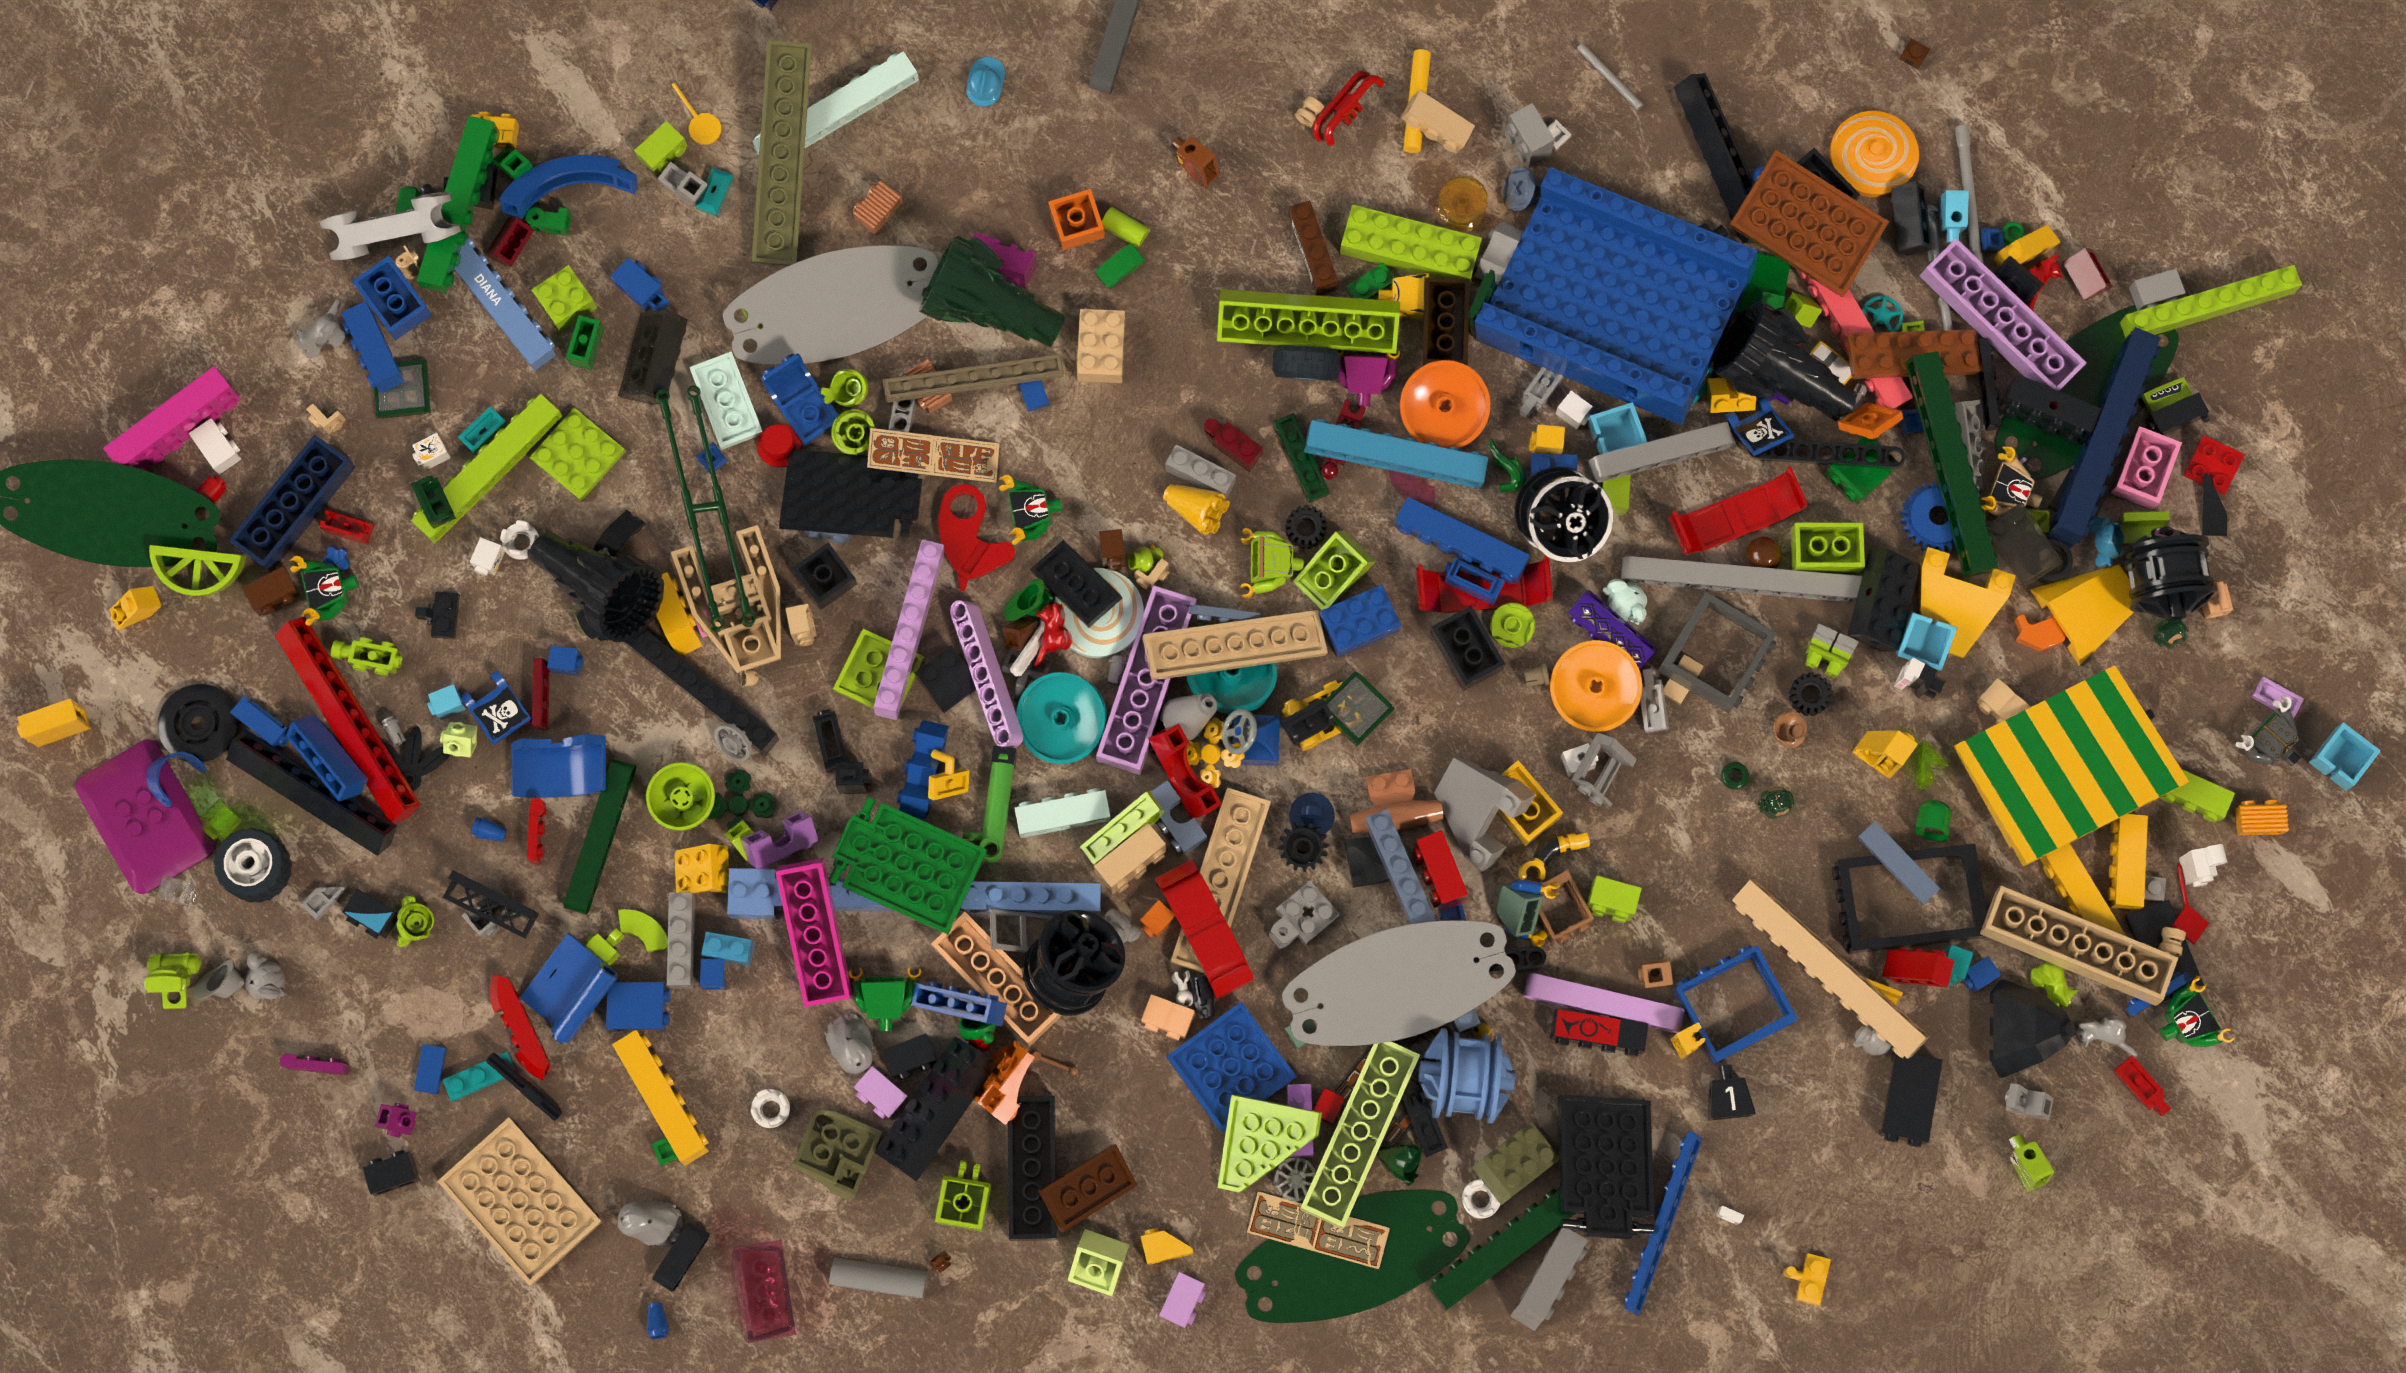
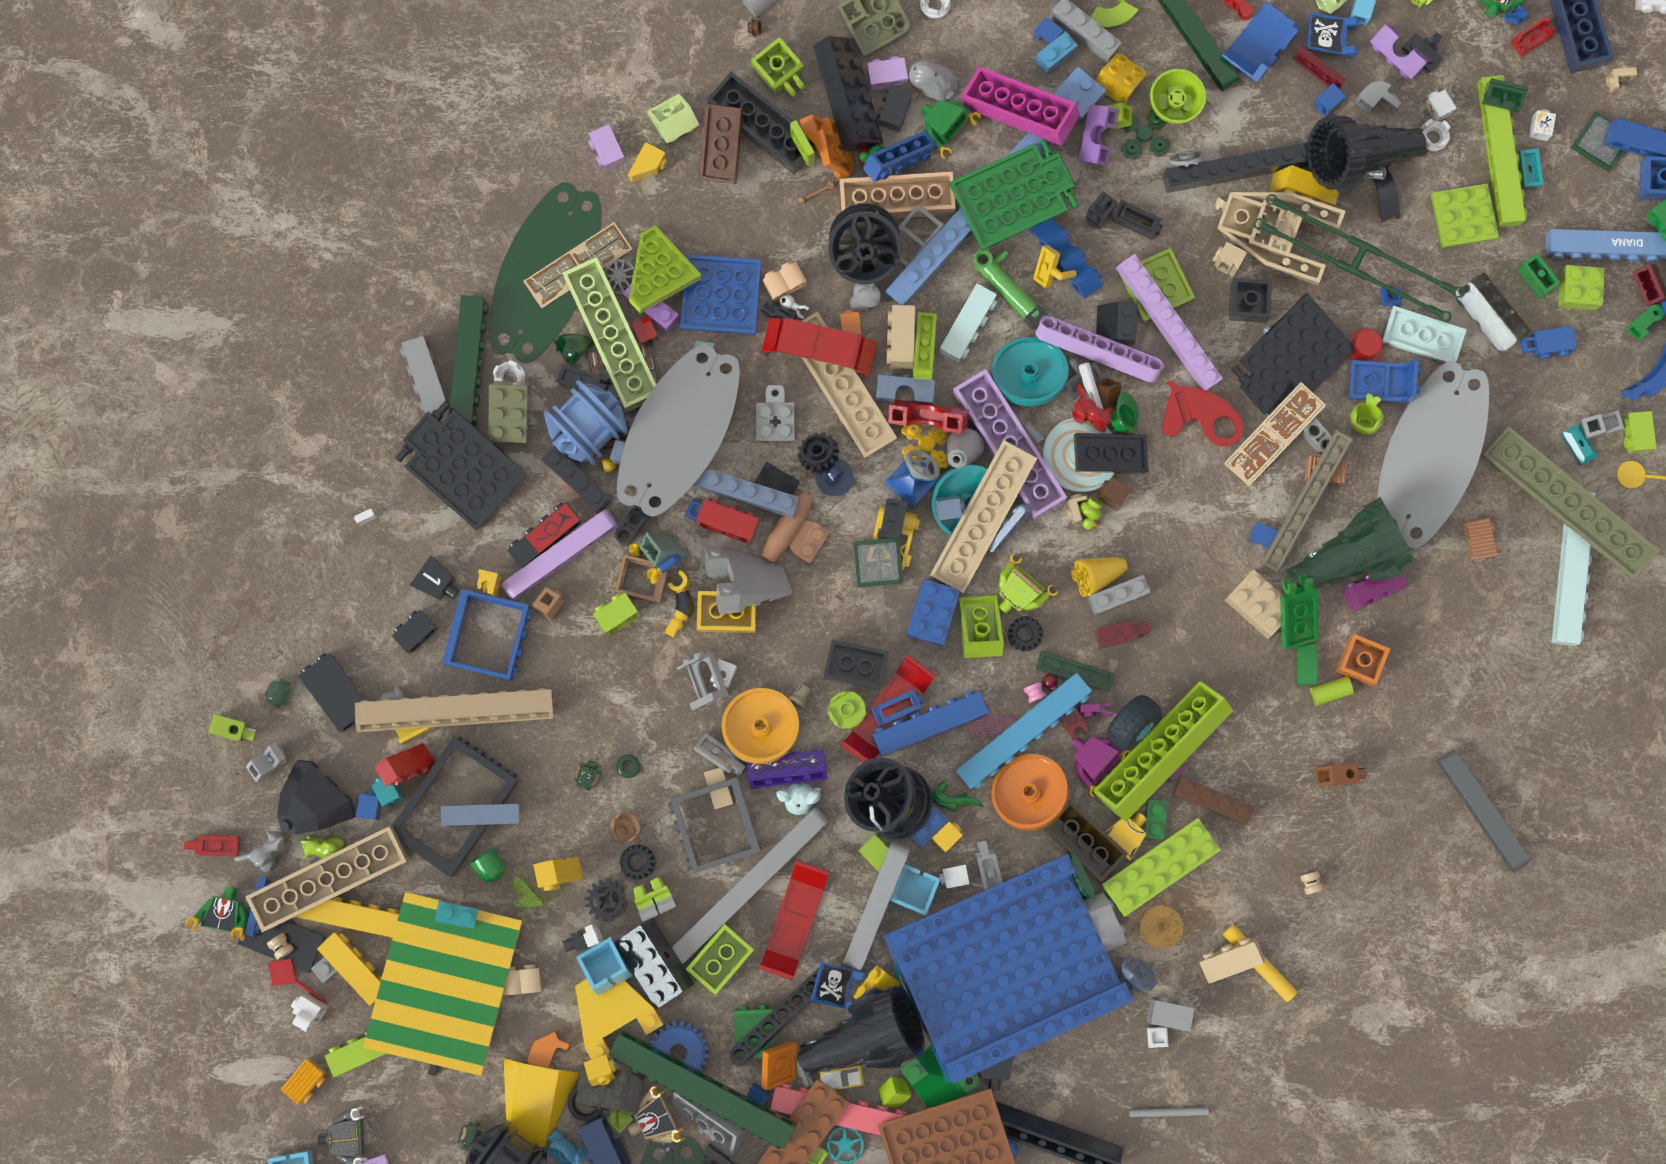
camera: 135 degrees right, 5 degrees up
(468, 616) = (1386, 41): none -> arch
(524, 624) = (1378, 93): none -> light grey brick
(852, 431) = (1335, 393): lime cone -> none
(985, 81) = (1514, 686): dark azure piece -> none
(1027, 1100) = (802, 143): none -> lime tile
(1029, 509) = (1186, 465): torso -> none
(1083, 302) = (1299, 613): none -> green tile
(1255, 680) = (949, 507): none -> sand blue brick
(1319, 410) = (1090, 709): none -> magenta plate
(1344, 105) = (1297, 909): red piece -> none
(1351, 474) = (1035, 692): none -> bright pink wheel
(1523, 1045) = (576, 480): none -> black brick
(1665, 1216) = (395, 469): blue plate -> none
(1764, 553) = (753, 916): reddish brown hair -> none
(1791, 1074) = (414, 631): none -> black brick
(1811, 1278) = (286, 534): yellow plate -> none
(1870, 701) = (598, 896): none -> black gear
(1958, 1149) = (278, 693): none -> clear green head
(2005, 799) = (456, 914): none -> teal brick
(2016, 562) = (600, 1070): none -> yellow brick

